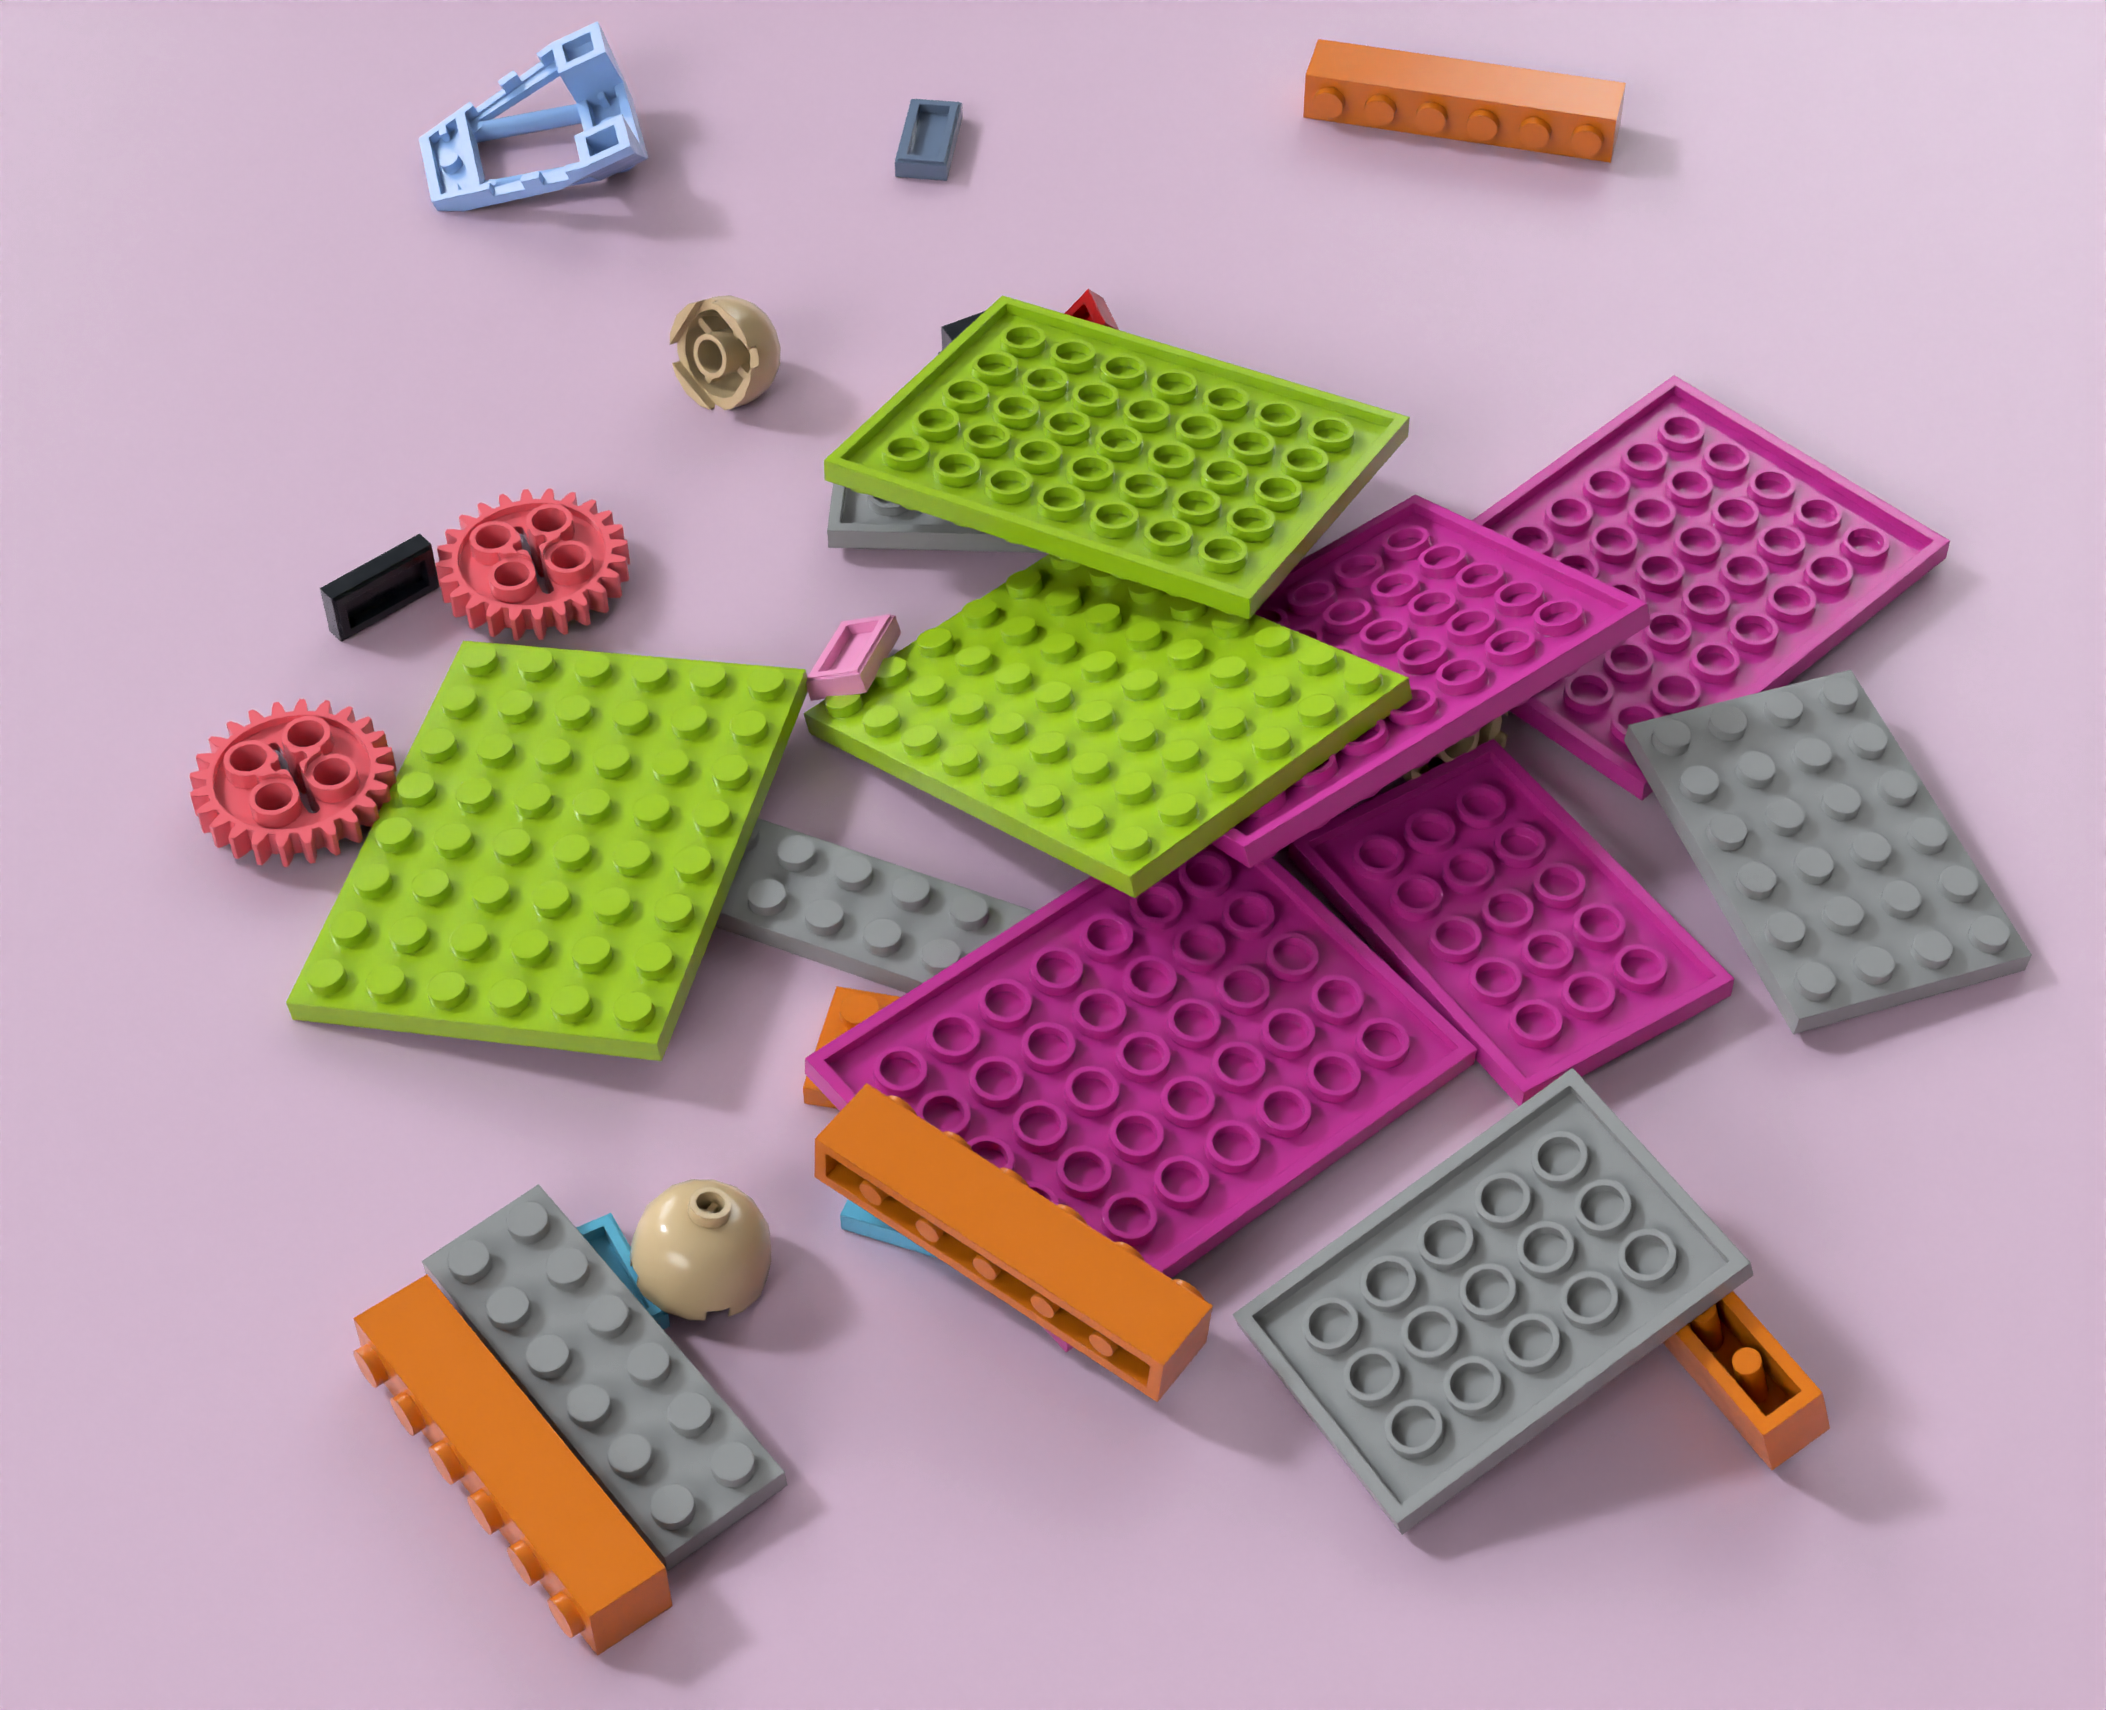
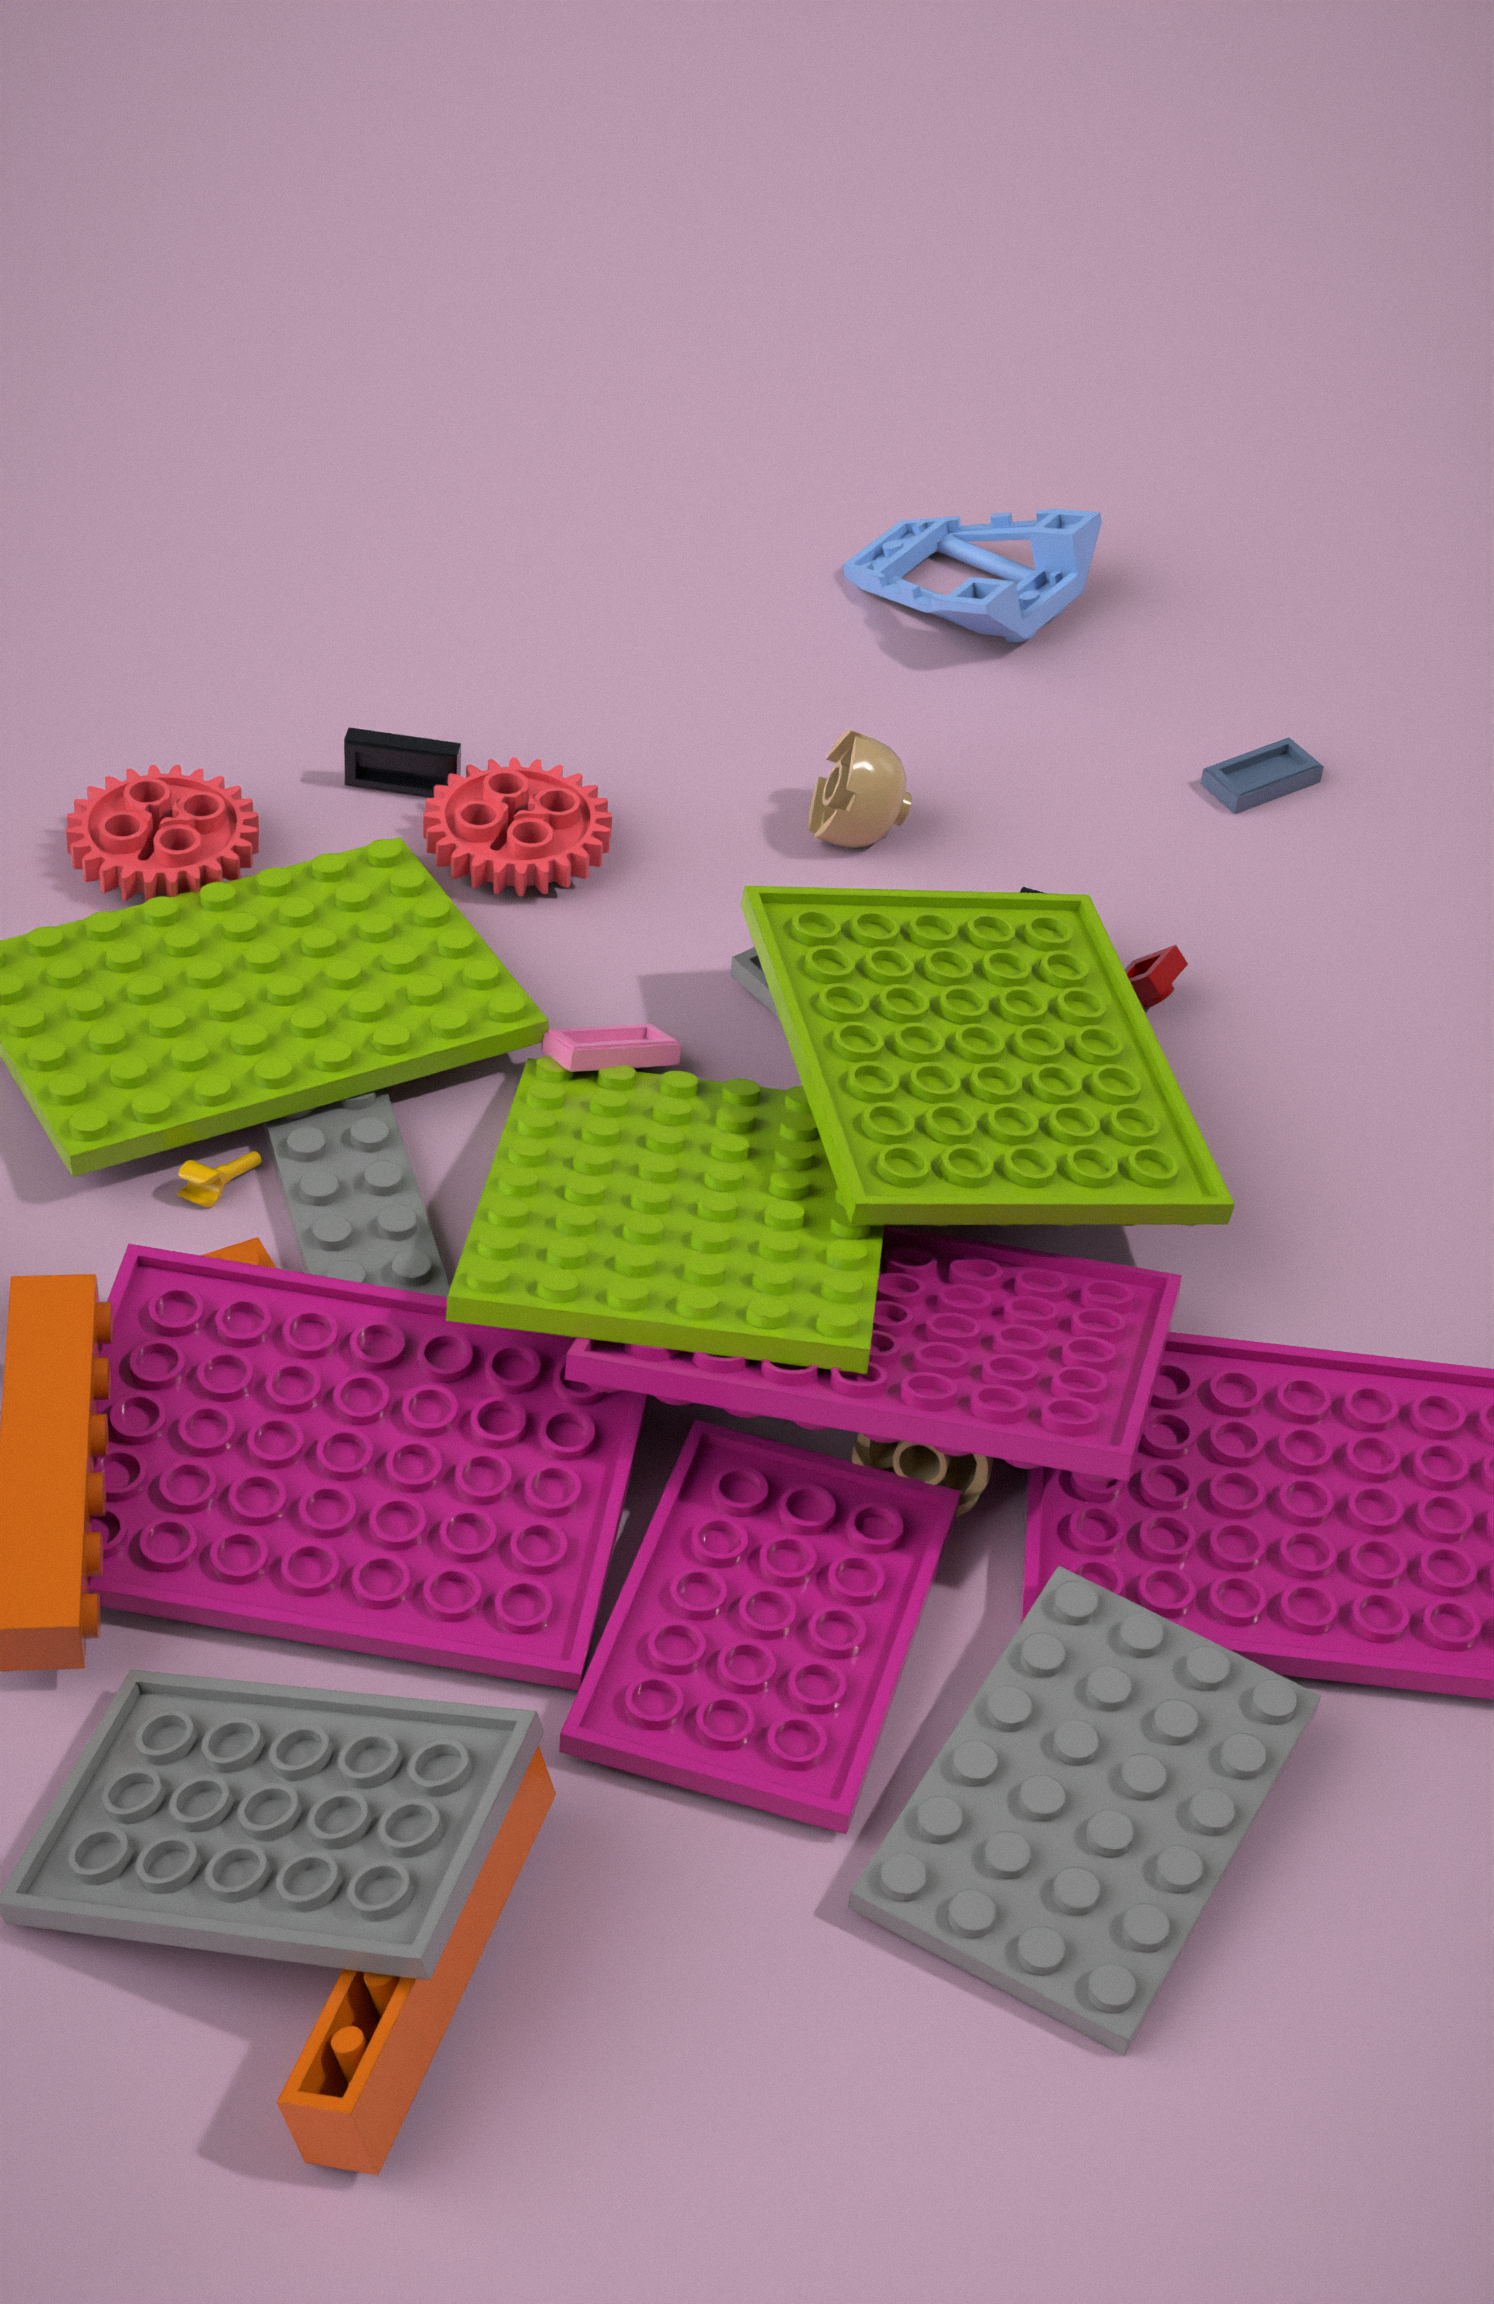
camera: 45 degrees right, 5 degrees down
(733, 988) = (207, 1184): none -> yellow hand

